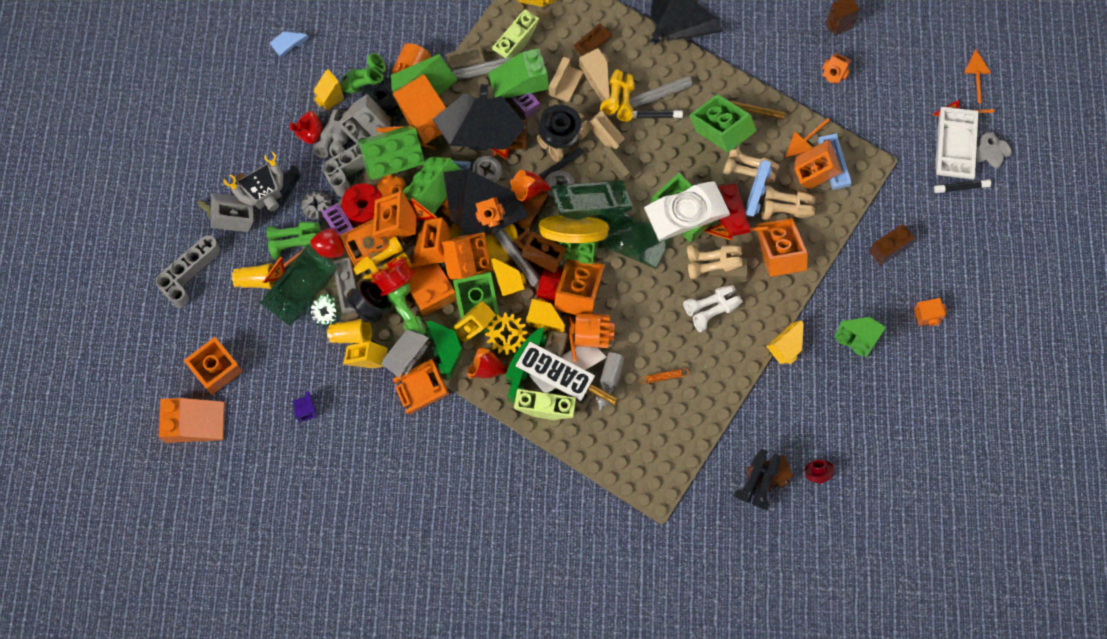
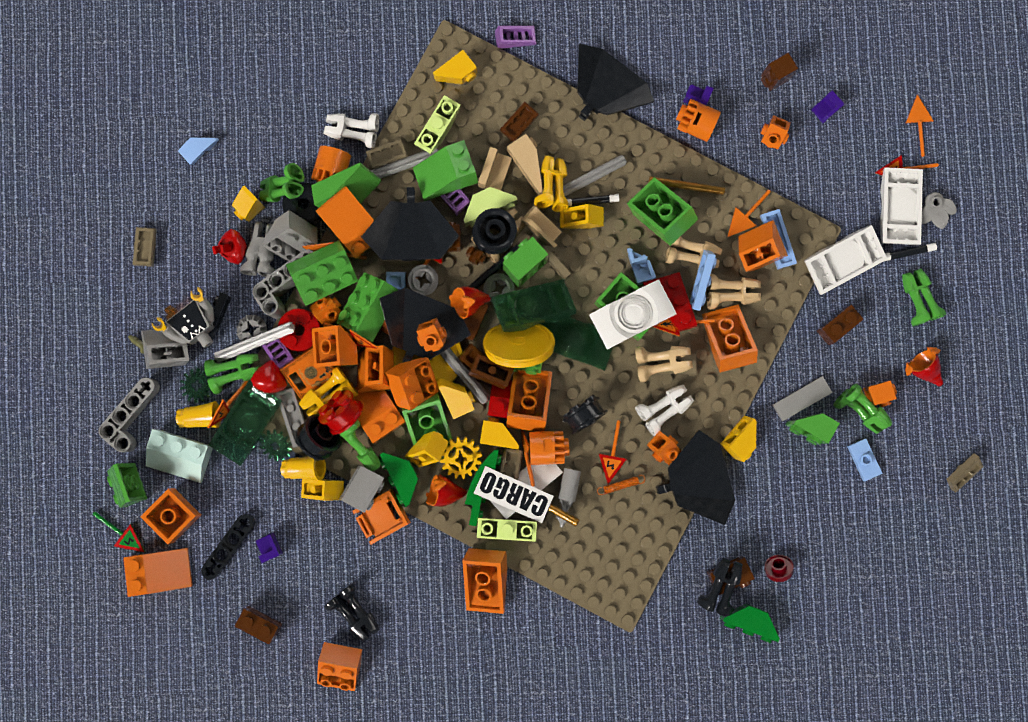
camera: 10 degrees left, 15 degrees up
(167, 388) = (128, 539): none -> piece
(173, 331) = (126, 484): none -> bright green slope
(225, 123) = (144, 247): none -> dark tan plate
(228, 311) = (177, 455): none -> light aqua slope
(261, 256) = (191, 390): none -> clear green gear
(262, 401) = (228, 546): none -> black beam
(284, 479) = (258, 625): none -> reddish brown brick
(319, 210) = (254, 342): none -> axle
(360, 529) = (339, 666): none -> orange slope
(378, 458) = (356, 624): none -> black piece
(422, 33) = (341, 131): none -> white piece
(518, 456) = (485, 580): none -> orange slope
(540, 152) = (475, 256): none -> reddish brown plate
(554, 99) = (486, 200): none -> yellowish green slope
(586, 155) = (525, 261): none -> bright green brick
(632, 302) = (584, 415): none -> black wheel
(646, 126) = (582, 217): none -> yellow slope
(656, 356) = (611, 463): none -> piece
(697, 172) = (641, 267): none -> light blue slope
(709, 341) = (664, 448): none -> orange brick
(744, 374) = (701, 479): none -> black panel
(763, 51) = (697, 119): none -> orange gear
(765, 35) = (698, 94): none -> dark purple panel
(788, 522) = (752, 621): none -> green slope
(855, 309) = (802, 398): none -> light grey tile
(889, 52) = (827, 106): none -> dark purple panel
(899, 185) = (845, 259): none -> white slope
(912, 375) = (864, 459): none -> light blue plate
(923, 335) = (873, 418): none -> bright green piece
(967, 216) = (920, 282): none -> bright green piece
(978, 291) = (926, 366): none -> hat
(1014, 395) = (964, 472): none -> dark tan plate

